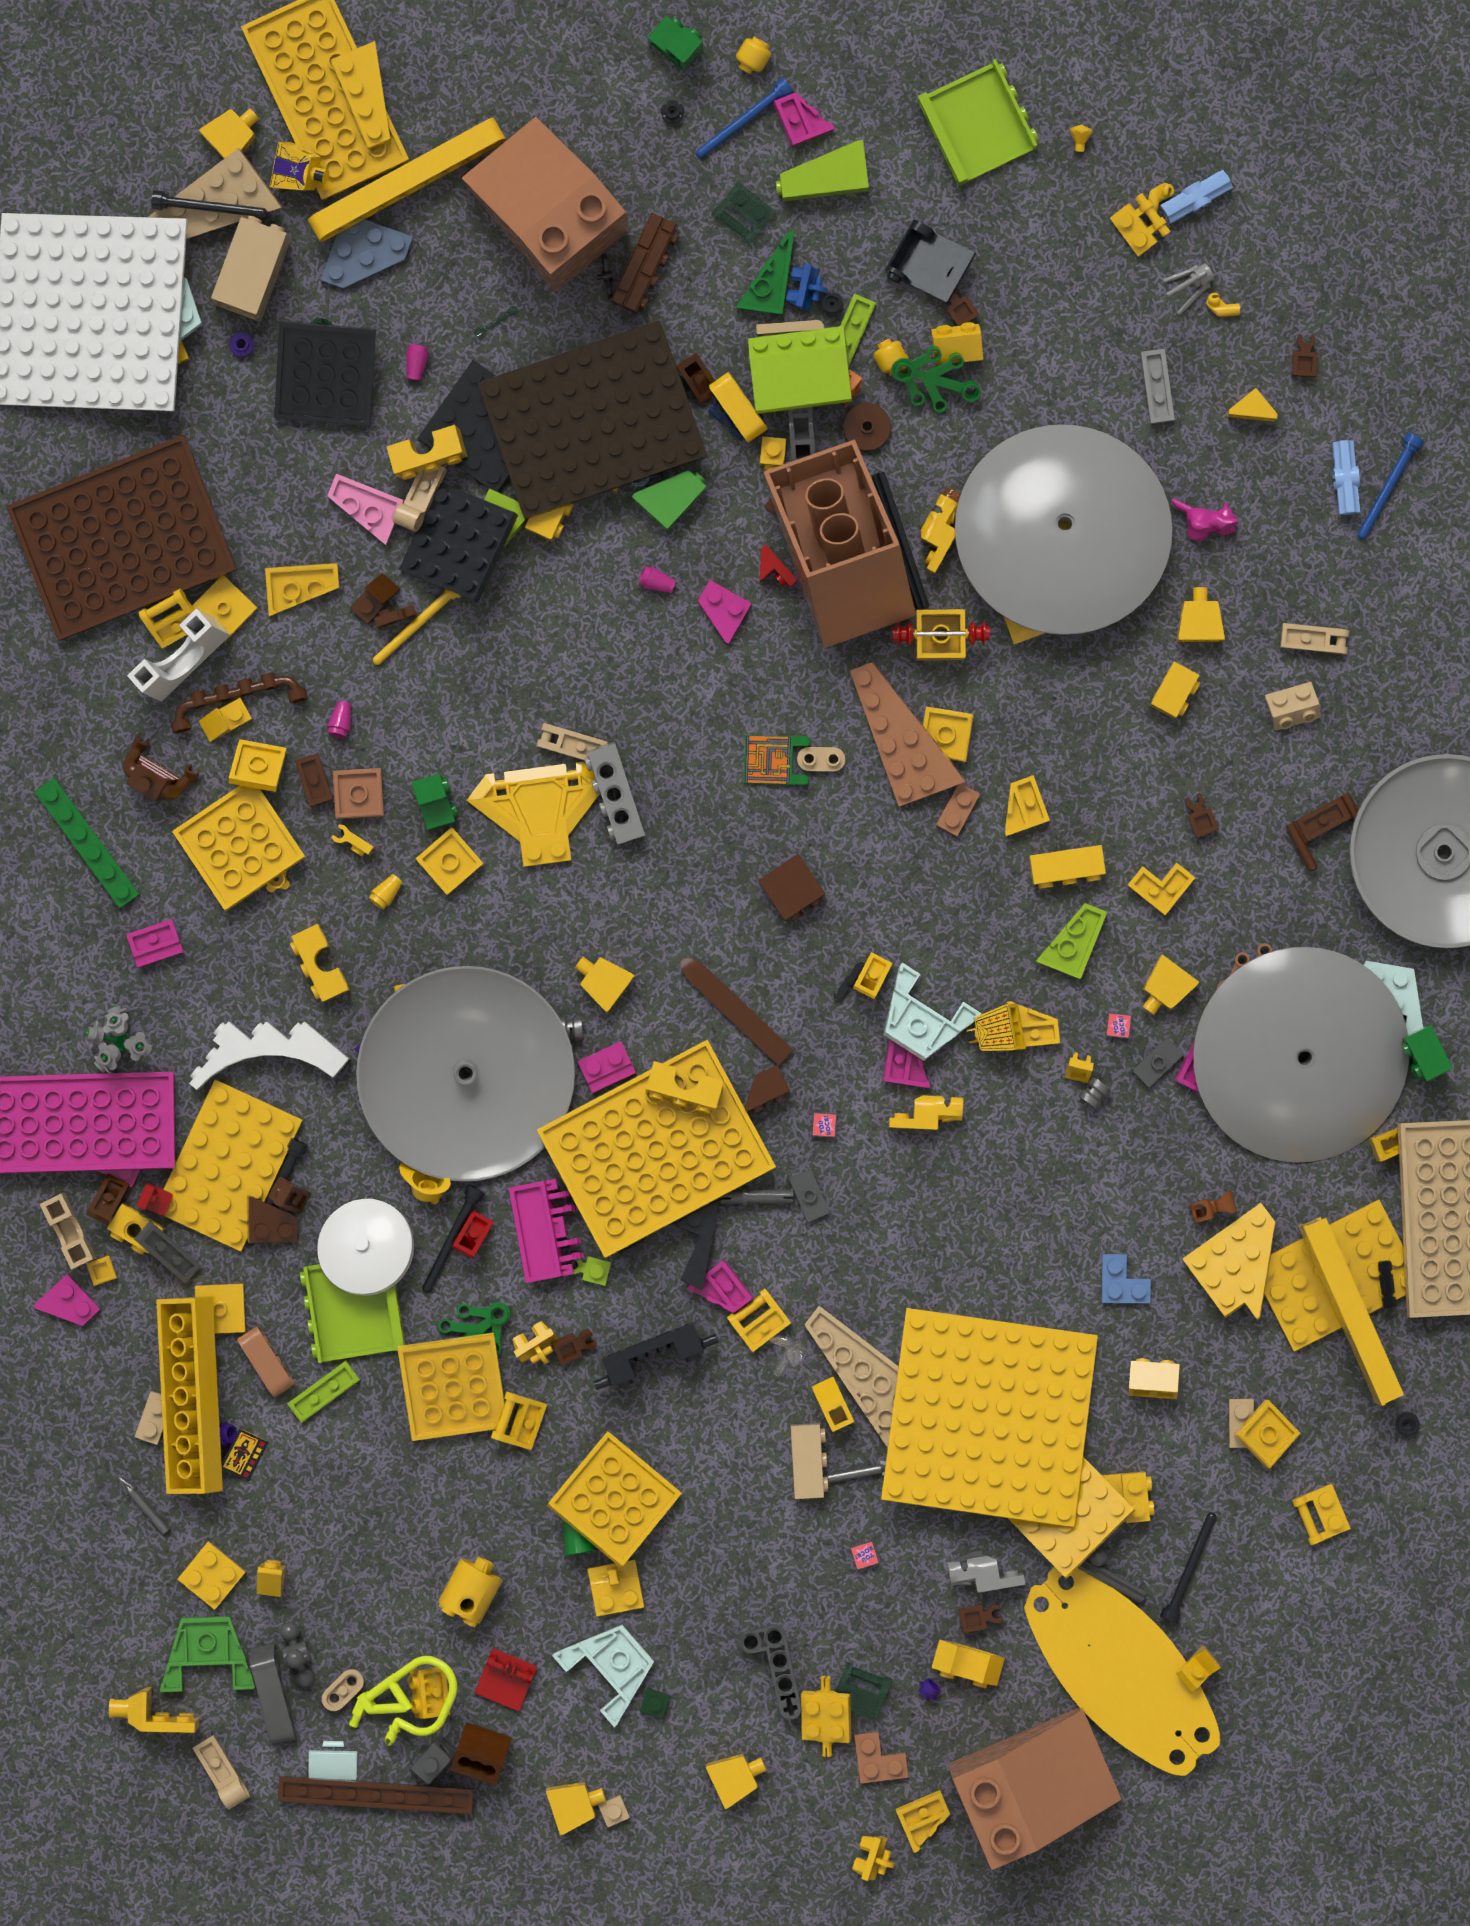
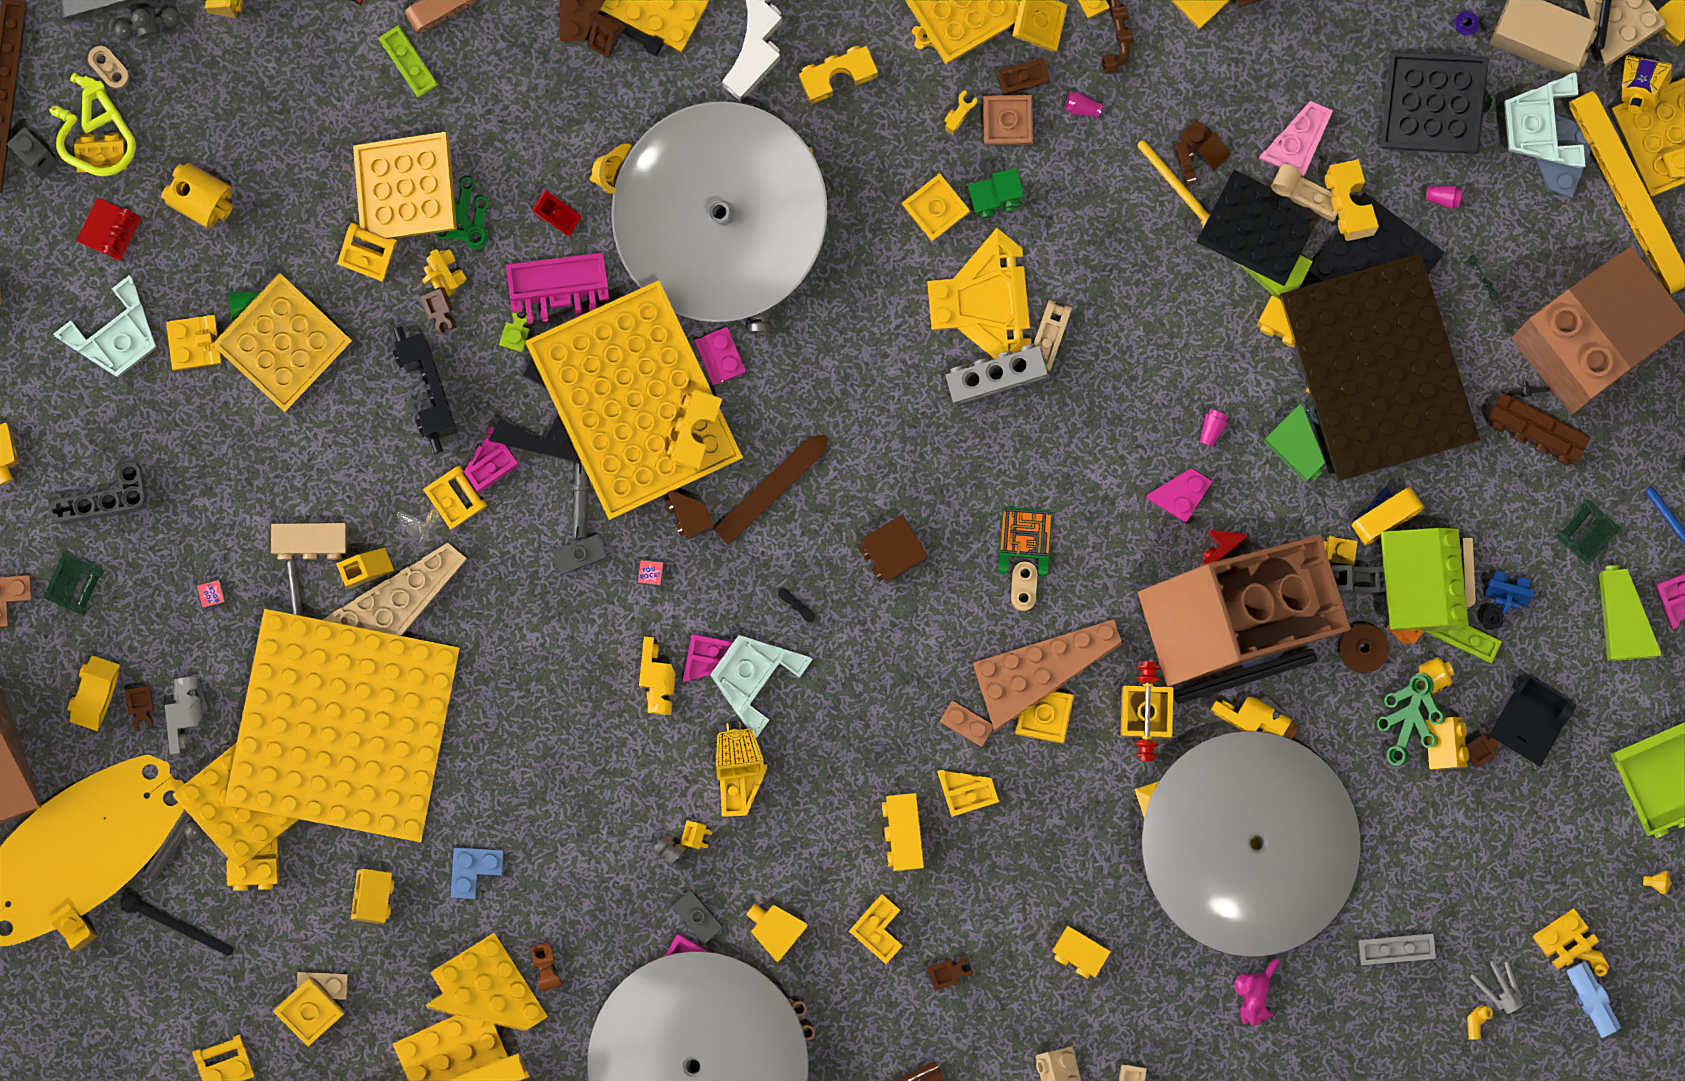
camera: 90 degrees right, 5 degrees down
(297, 584) = (1222, 69): yellow wing -> none
(333, 1763) = (36, 55): light aqua piece -> none
(344, 276) = (1533, 125): none -> light aqua wing
(349, 1323) = (490, 93): lime panel -> none
(365, 1247) = (550, 107): white dish -> none
(385, 892) = (907, 143): yellow cone -> none
(472, 1196) = (594, 216): black piece -> none
(481, 1753) = (34, 198): reddish brown piece -> none
(603, 981) = (806, 356): yellow torso -> none
(654, 1703) = (75, 376): dark green plate -> none
(696, 377) = (1420, 475): reddish brown slope -> none
(769, 288) = (1508, 554): green wing -> none
(826, 1716) = (49, 546): yellow plate -> none
(872, 975) = (799, 627): yellow slope -> none
(929, 1689) = (70, 653): dark purple plate -> none
(1075, 942) = (824, 837): lime wing -> none
(1118, 1025) = (737, 878): tile -> none
(1200, 619) = (1153, 982): yellow torso -> none
(1253, 407) = (1371, 1048): yellow slope -> none

